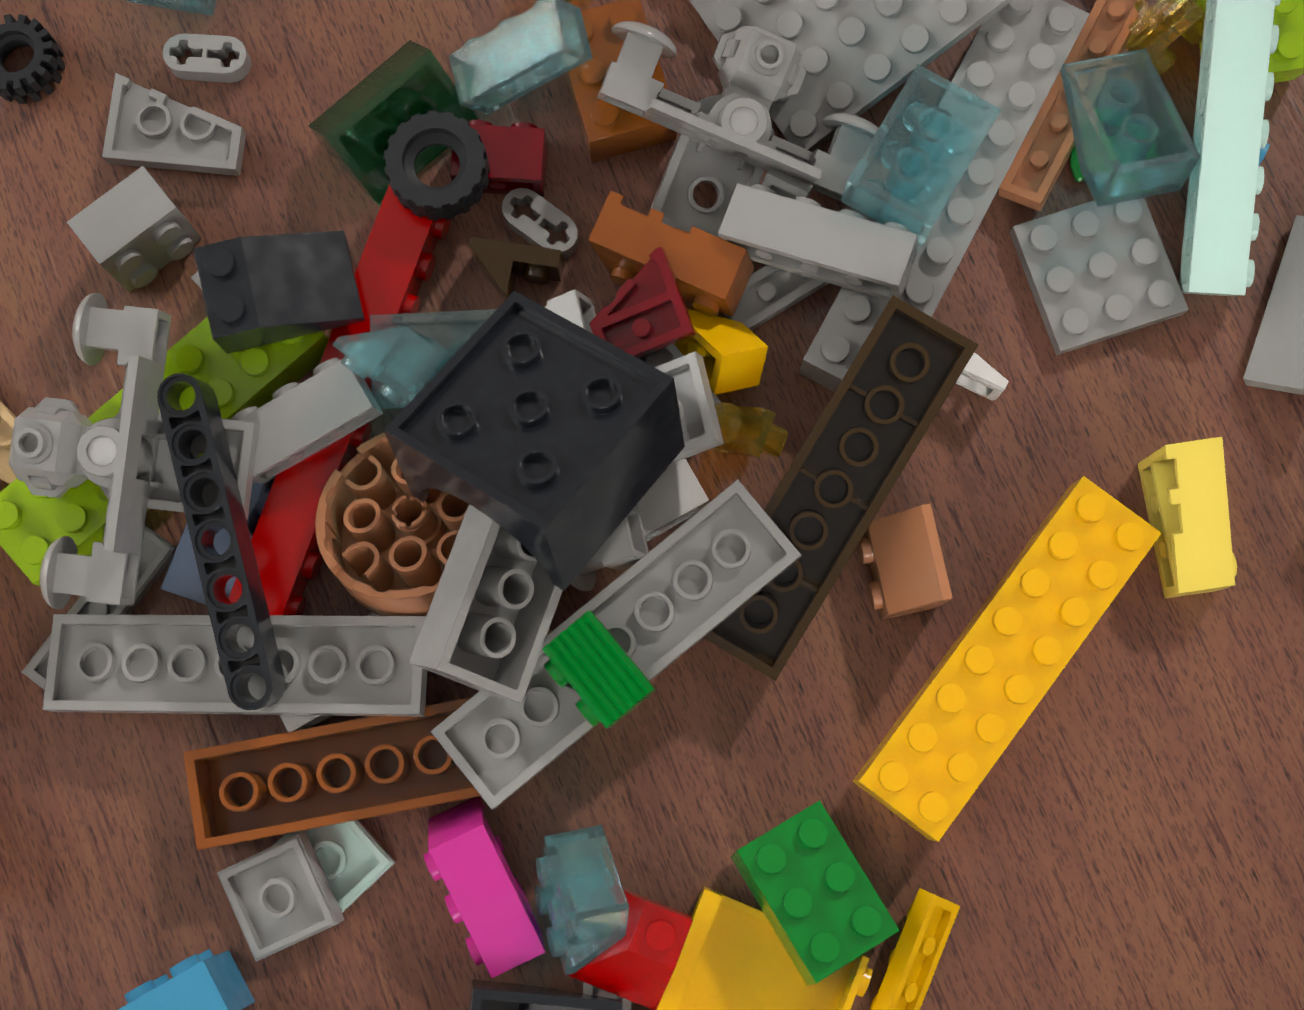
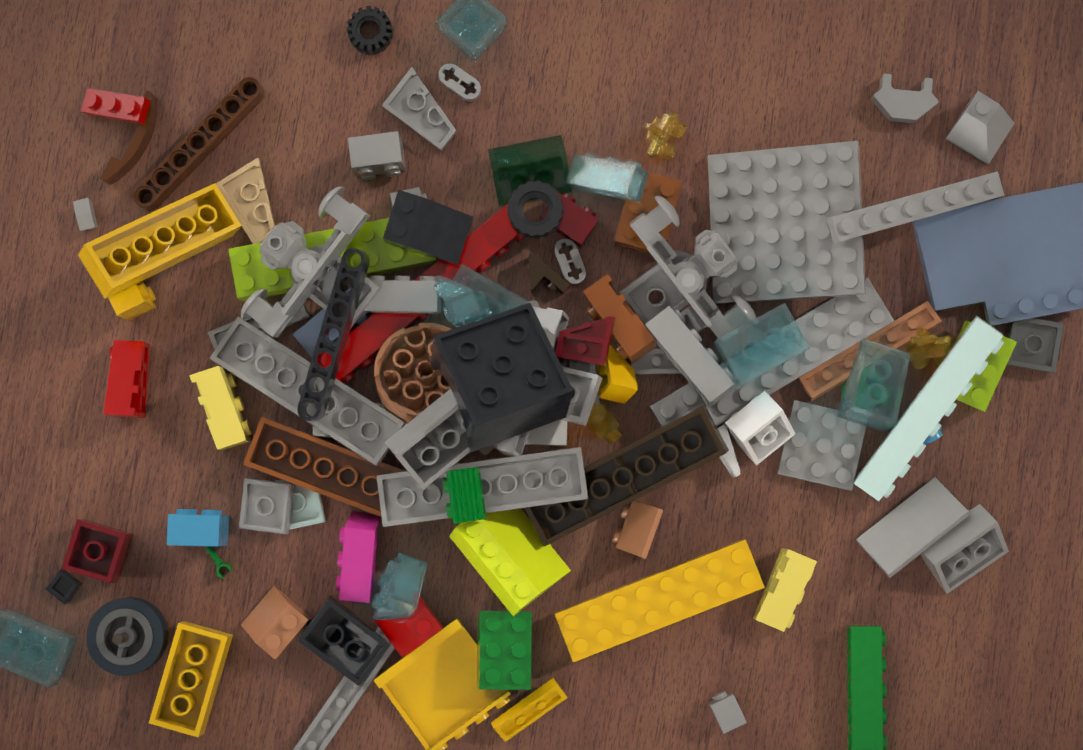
camera: 35 degrees right, 5 degrees up
(110, 777) = (222, 407): none -> light yellow wedge
(729, 733) = (510, 557): none -> neon yellow slope
(993, 290) = (760, 427): none -> white brick
(1226, 769) = (726, 711): none -> light grey brick

